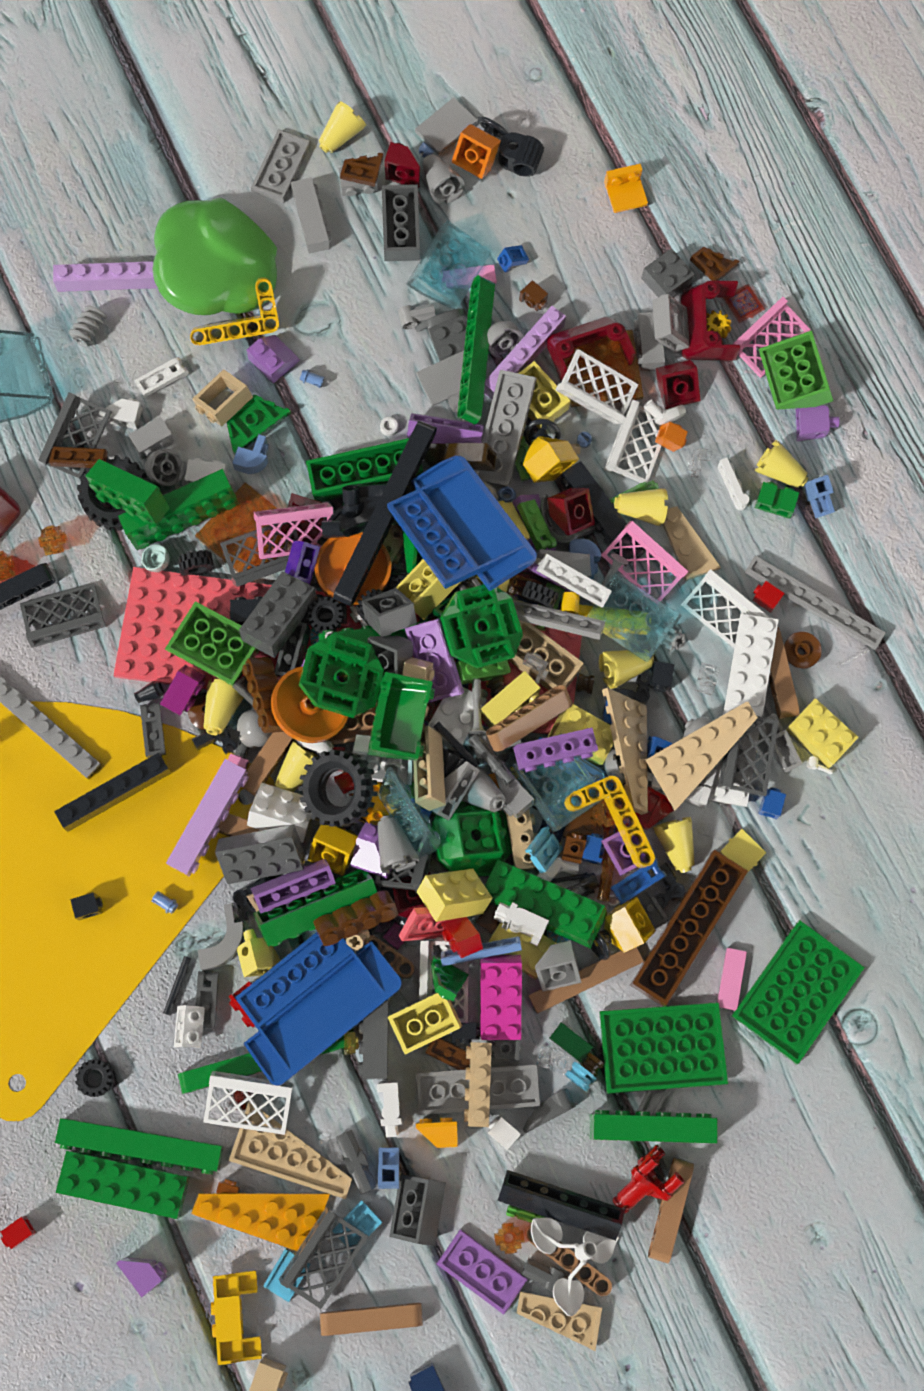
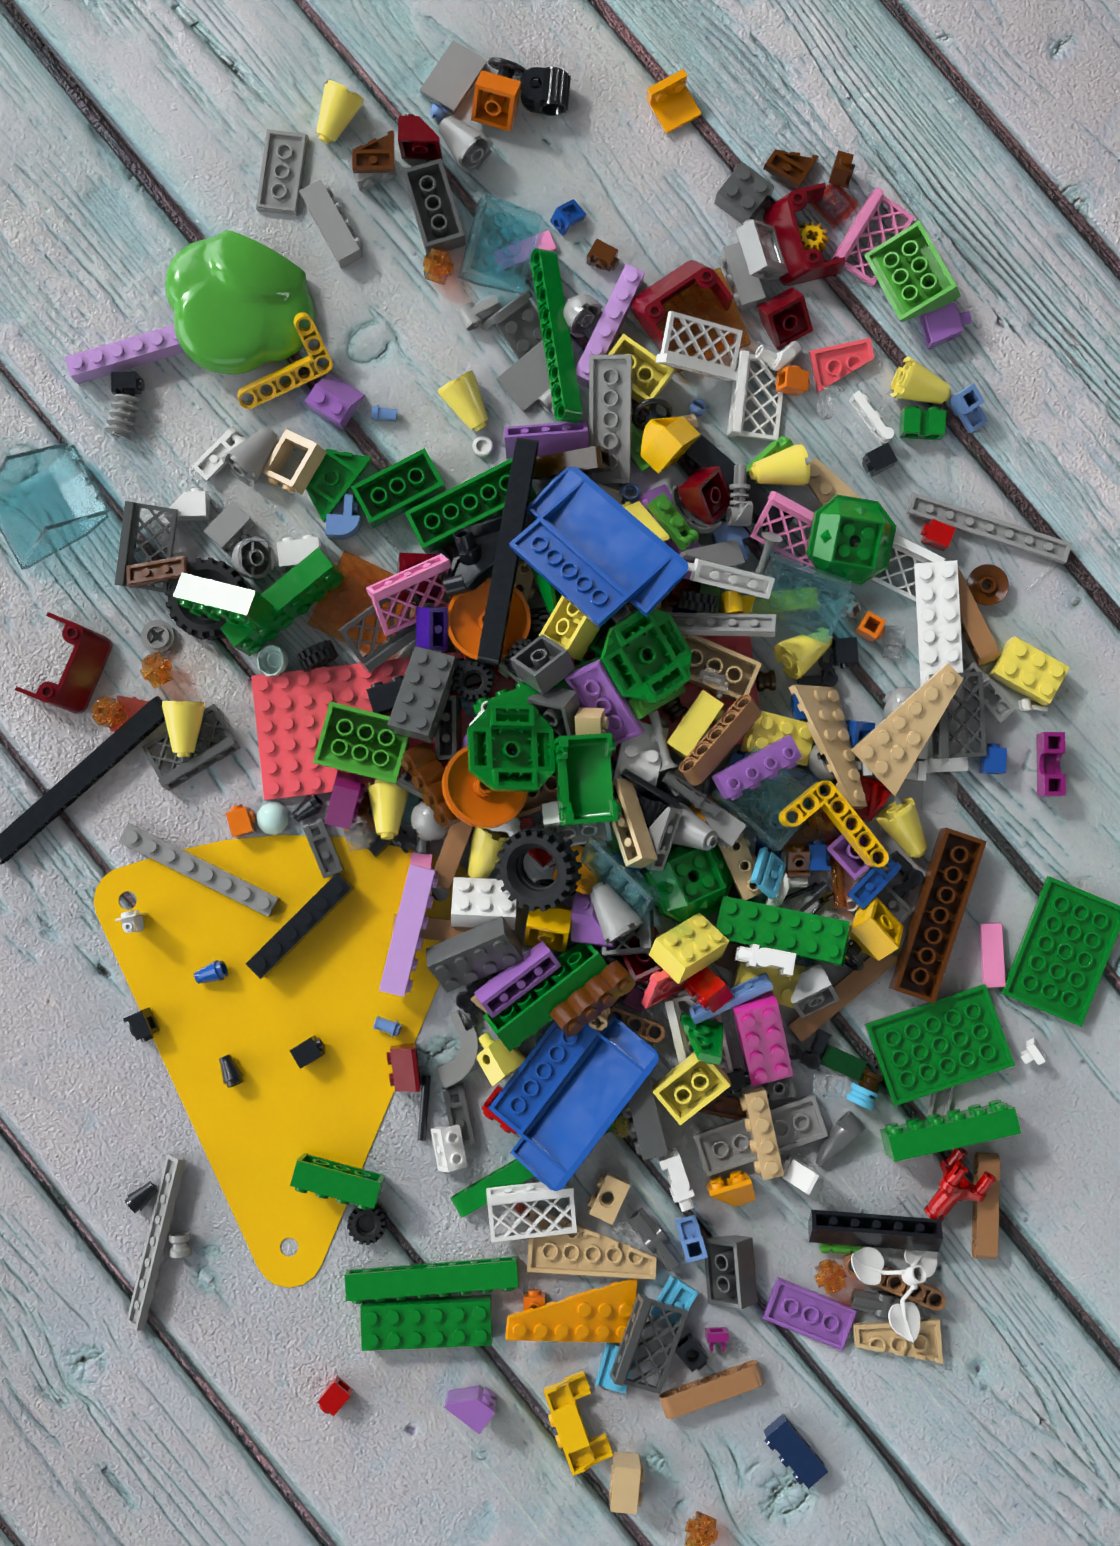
camera: 10 degrees left, 10 degrees up
(12, 909) = (230, 1072): none -> black cone
(21, 814) = (213, 972): none -> blue cone
(62, 591) = (183, 725): none -> light yellow cone
(65, 506) = (148, 637): none -> light grey gear
(79, 1028) = (337, 1181): none -> green brick
(88, 688) = (241, 820): none -> orange brick
(100, 299) = (126, 383): none -> black brick
(116, 693) = (272, 818): none -> light aqua hair
(170, 942) = (405, 1068): none -> dark red slope
(186, 384) = (251, 455): none -> light grey cone
(186, 726) = (358, 836): none -> clear brick
(305, 440) = (398, 488): none -> green brick
(320, 1123) = (603, 1209): none -> tan brick
(353, 1272) = (690, 1343): none -> black brick
(384, 383) = (465, 400): none -> light yellow cone
(388, 1268) = (717, 1335): none -> magenta tile
(391, 270) = (438, 266): none -> clear orange brick
(542, 1031) = (812, 1059): none -> black bar
(598, 532) = (742, 510): none -> light grey piece
(670, 572) = (836, 524): none -> green piece
(689, 659) = (870, 627): none -> orange brick
(717, 430) = (837, 361): none -> coral wing
(731, 520) = (879, 459): none -> black brick
(743, 850) = (973, 818): light yellow piece -> none
(749, 1077) = (1033, 1052): none -> white tile
(756, 276) = (842, 169): none -> reddish brown brick
(820, 826) = (1049, 776): none -> magenta arch

